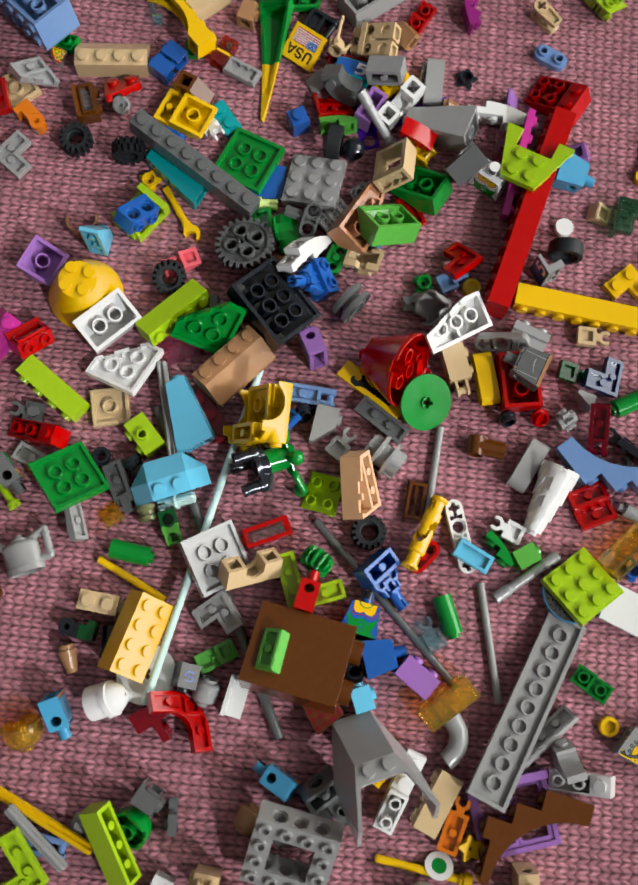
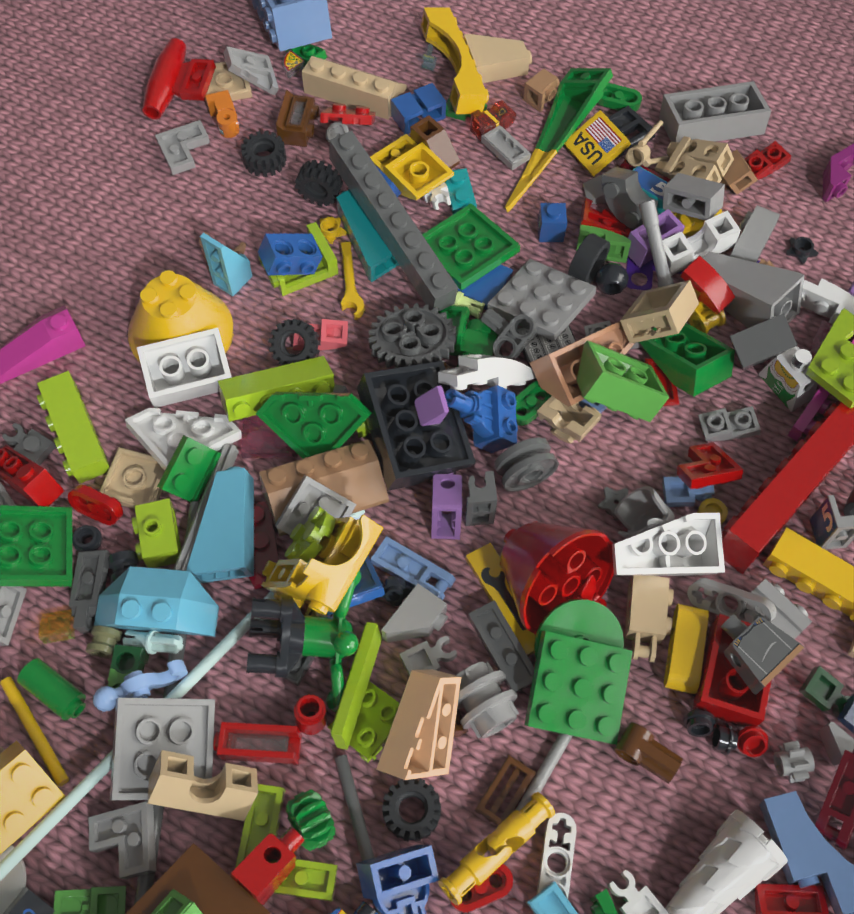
camera: 30 degrees right, 15 degrees down
(29, 338) = (77, 351): red window -> none
(41, 261) = (140, 264): medium lavender slope -> none
(95, 433) = (95, 504): none -> red plate
(145, 388) = (189, 469): none -> green plate
(183, 530) = (139, 685): none -> light blue piece
(232, 379) = (307, 497): none -> light grey plate
(244, 402) = (308, 536): none -> lime plate
(282, 290) = (431, 407): none -> medium lavender slope
(292, 499) = (310, 706): none -> red brick
(308, 478) = (356, 686): none -> lime tile
(335, 337) = (481, 501): none -> dark grey hinge
(422, 279) = (643, 473): green plate -> none
(434, 427) = (578, 687): none -> green plate
(462, 225) = (725, 425): none -> light grey slope
(524, 422) = (724, 738): none -> black plate
(527, 465) = (706, 810): light grey beam -> none

